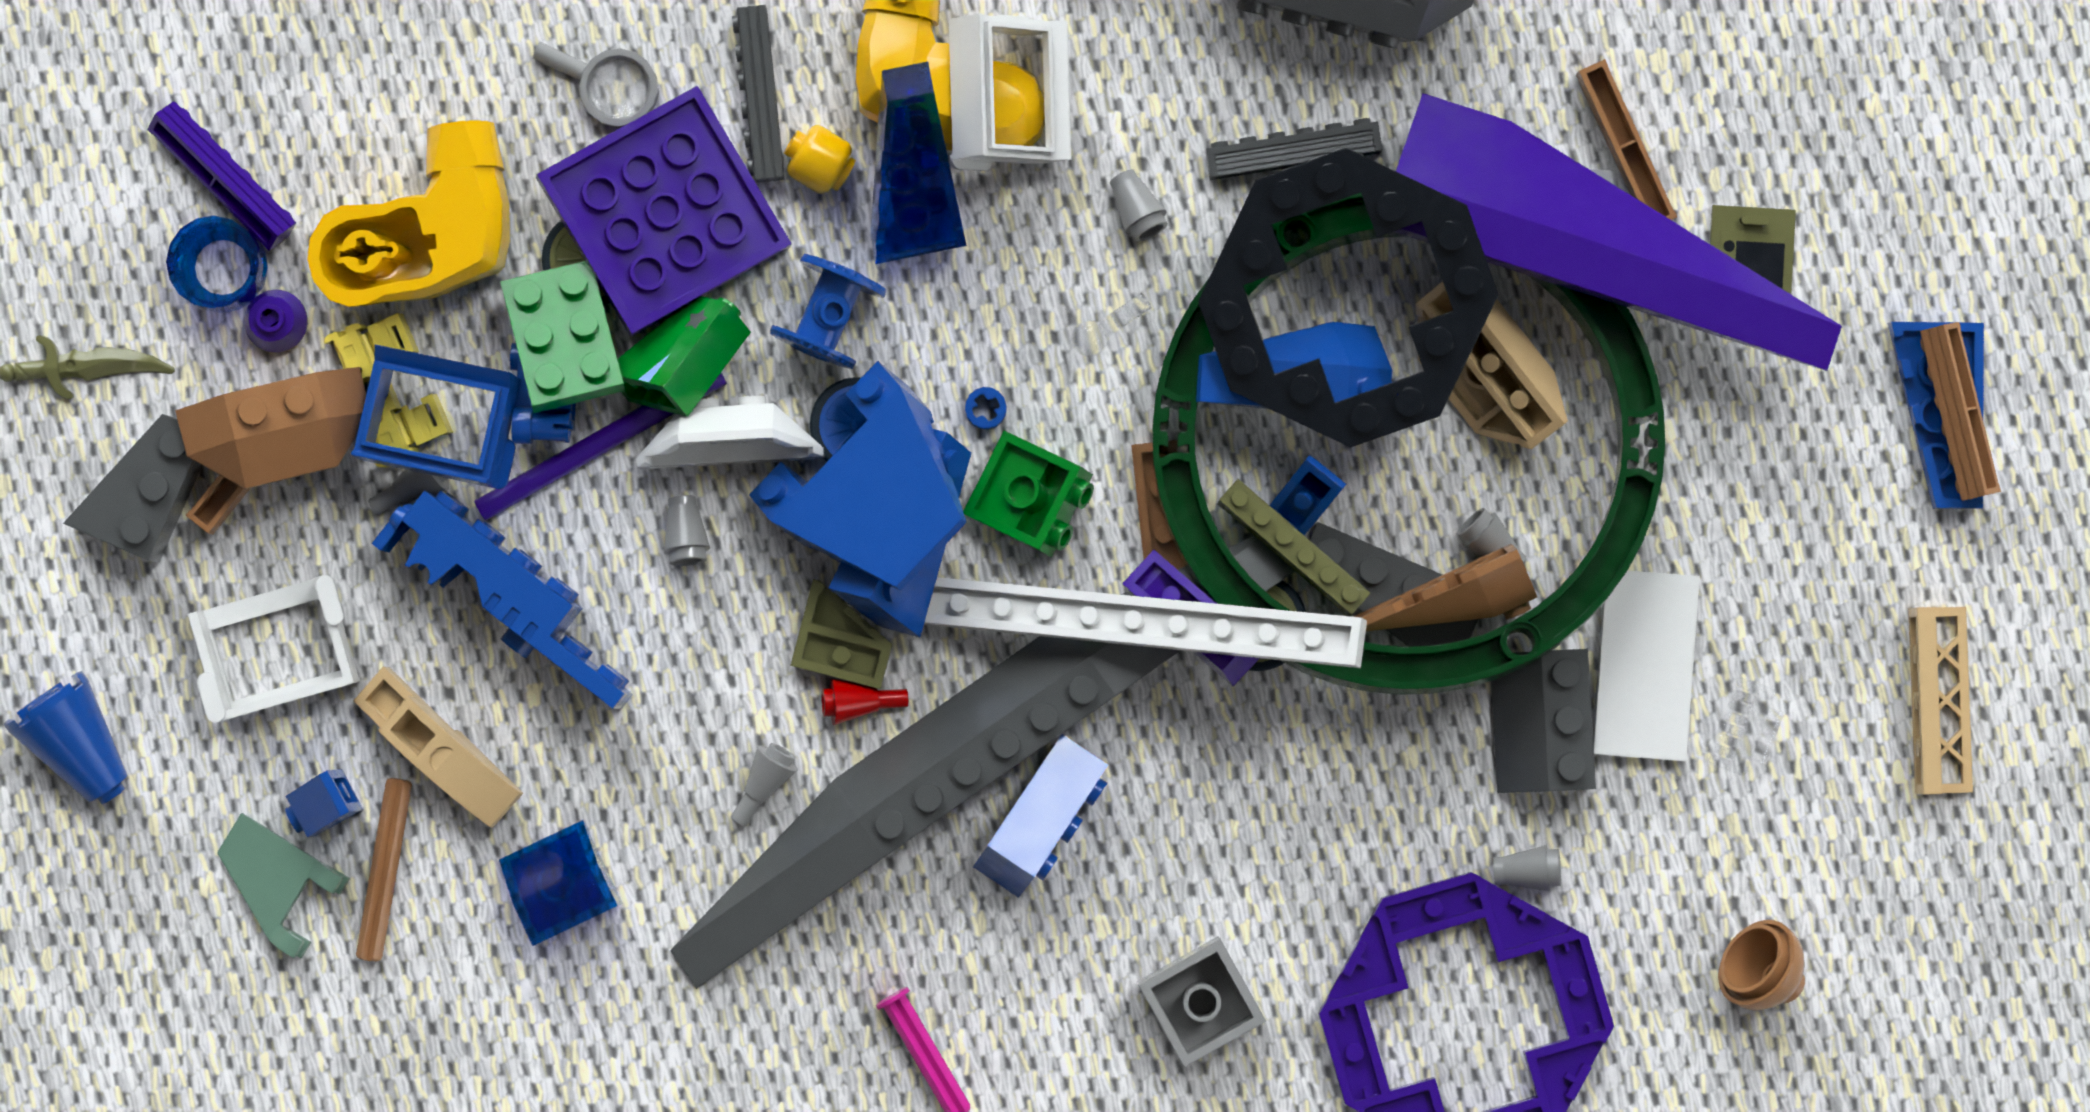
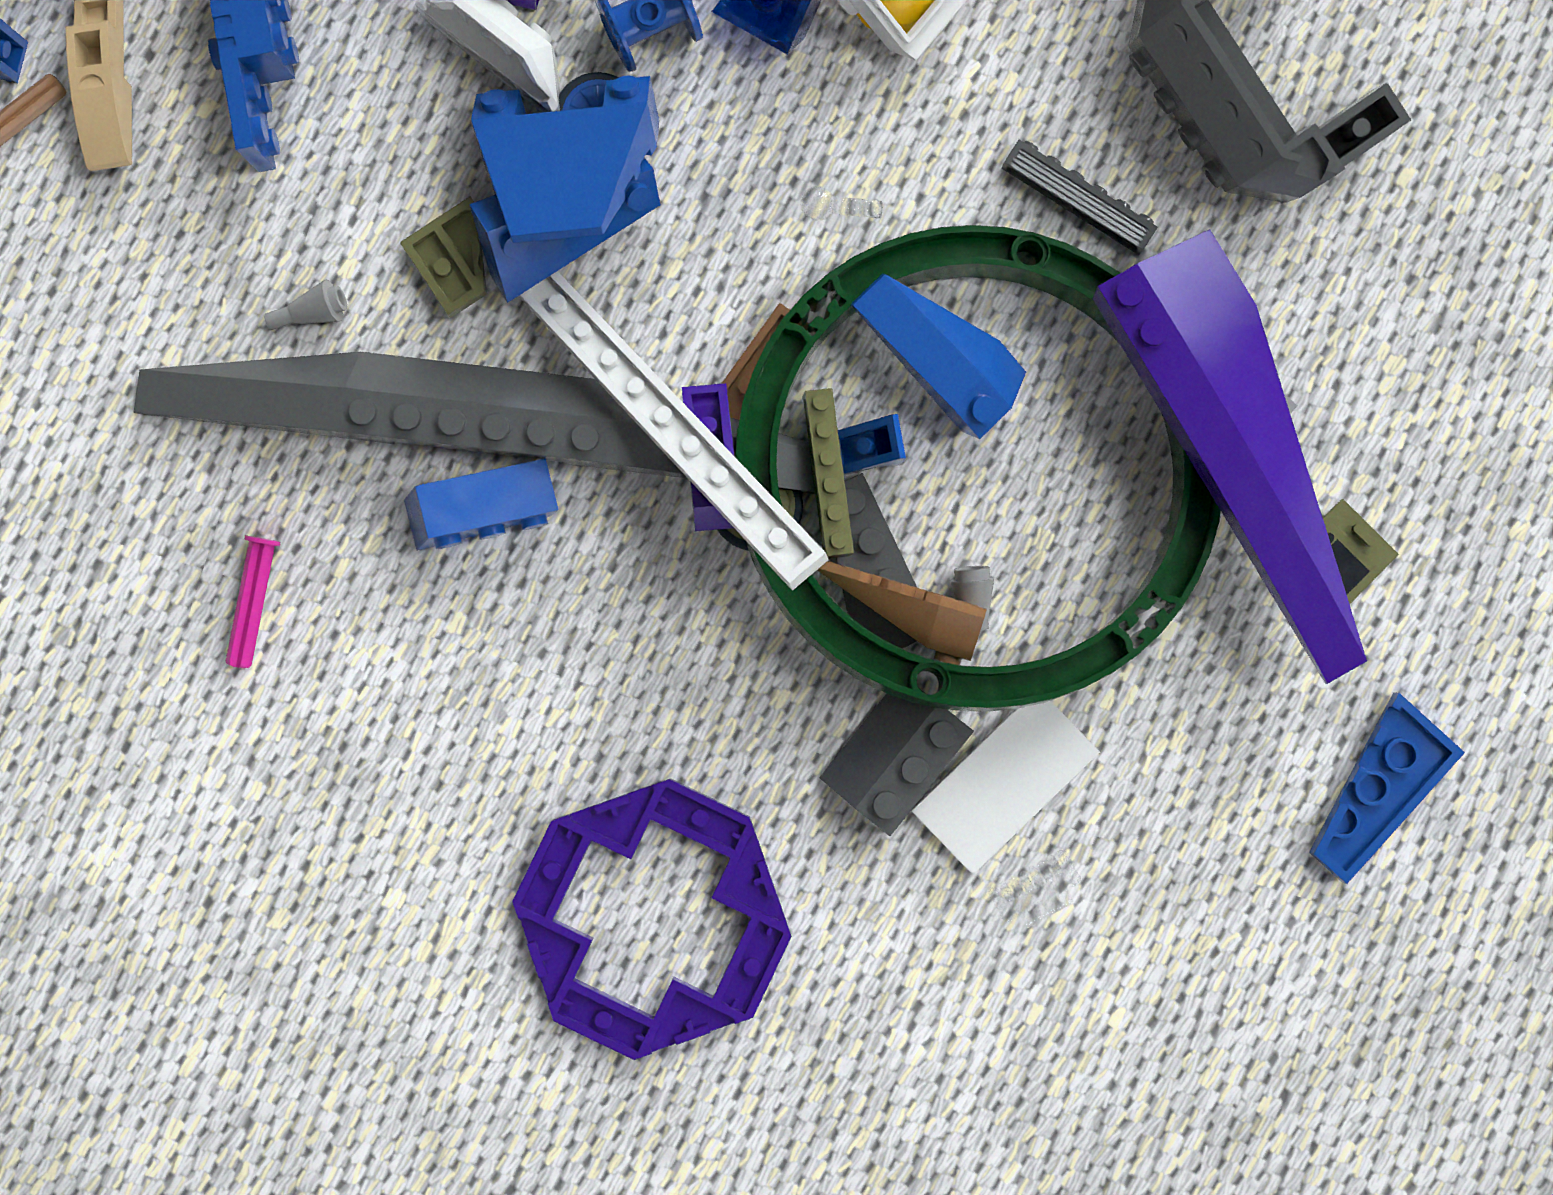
camera: 40 degrees right, 0 degrees up
(558, 883) = (100, 253): clear blue slope -> none
(685, 533) = (410, 86): light grey cone -> none
(850, 701) = (420, 306): red cone -> none
(990, 394) = (712, 181): blue bush -> none
(1030, 494) = (676, 272): green plate -> none
(1137, 206) = (933, 140): light grey cone -> none
(1201, 1001) = (473, 737): light grey brick -> none
(1304, 390) = (987, 230): black plate -> none
(1505, 383) = (1082, 465): tan wedge -> none
(1532, 869) = (793, 852): light grey cone -> none
(1623, 138) = (1324, 388): medium nougat piece -> none
(1762, 966) = (896, 1070): medium nougat piece -> none
(1926, 703) = (1185, 985): tan fence -> none
(1959, 411) = (1393, 799): medium nougat piece -> none

